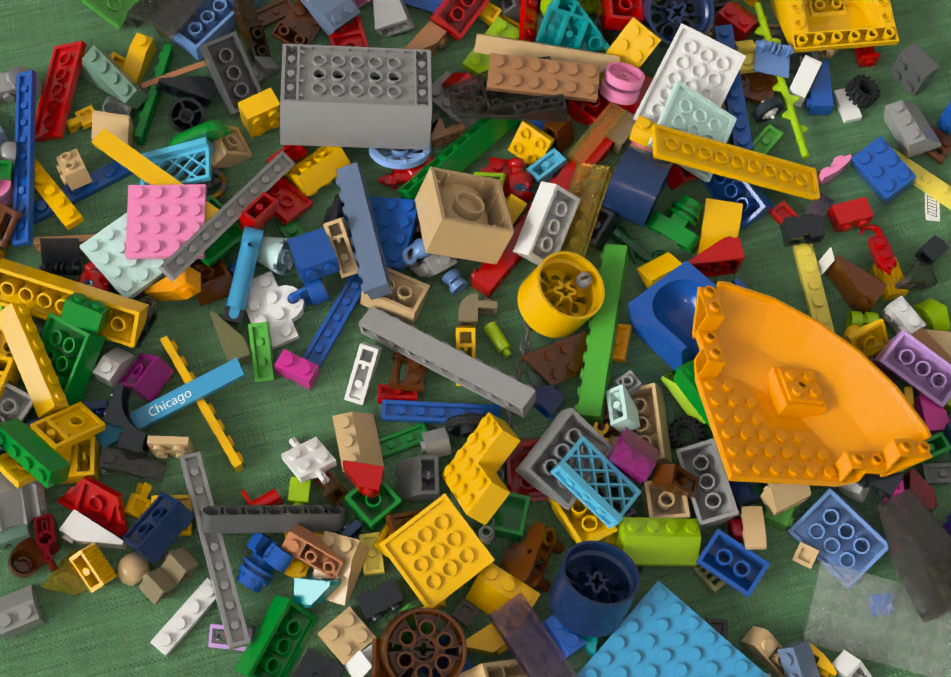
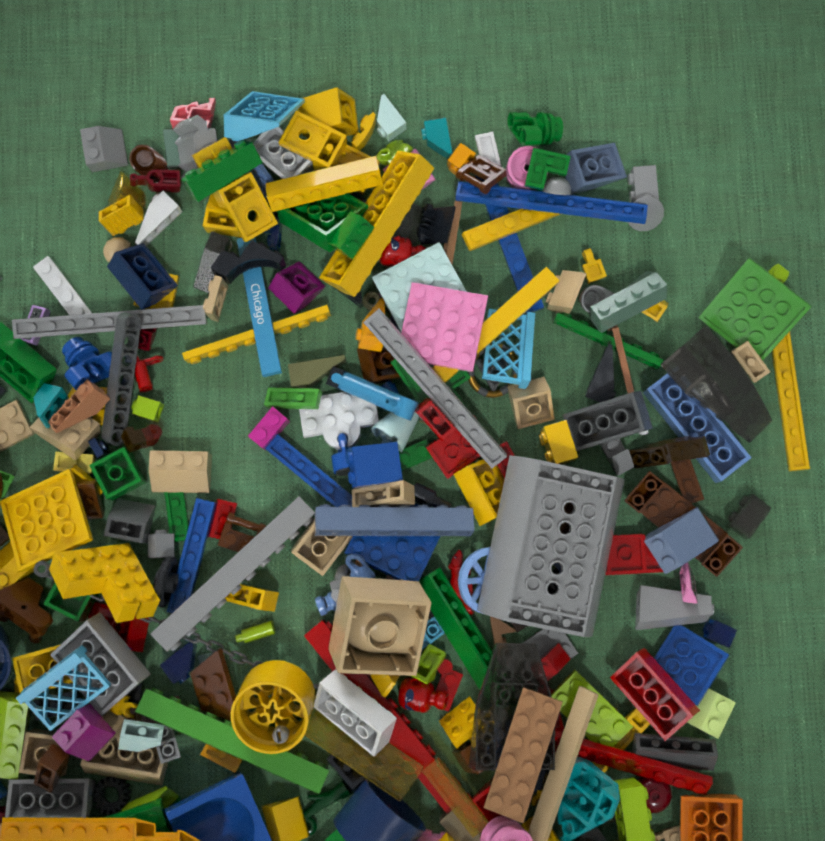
camera: 115 degrees right, 15 degrees up
(58, 91) = (628, 246): red plate -> none
(73, 170) = (530, 248): tan brick -> none
(98, 504) = (179, 228): red wing -> none
(113, 366) = (311, 257): white slope -> none
(138, 501) = (174, 264): yellow plate -> none
(139, 56) = (653, 330): yellow slope -> none
(176, 568) = (99, 279): dark tan brick -> none
(185, 113) = (571, 368): black cylinder -> none
(211, 129) = (540, 375): green brick -> none
(309, 460) = (172, 422): white plate -> none
(363, 372) = (252, 492): white slope -> none
(365, 477) = (132, 468): red slope -> none
(381, 601) = (27, 461): black brick -> none
(429, 38) = (616, 638): medium nougat slope -> none
(472, 307) = (292, 610): dark tan brick -> none
(544, 168) = (433, 732): medium azure slope -> none

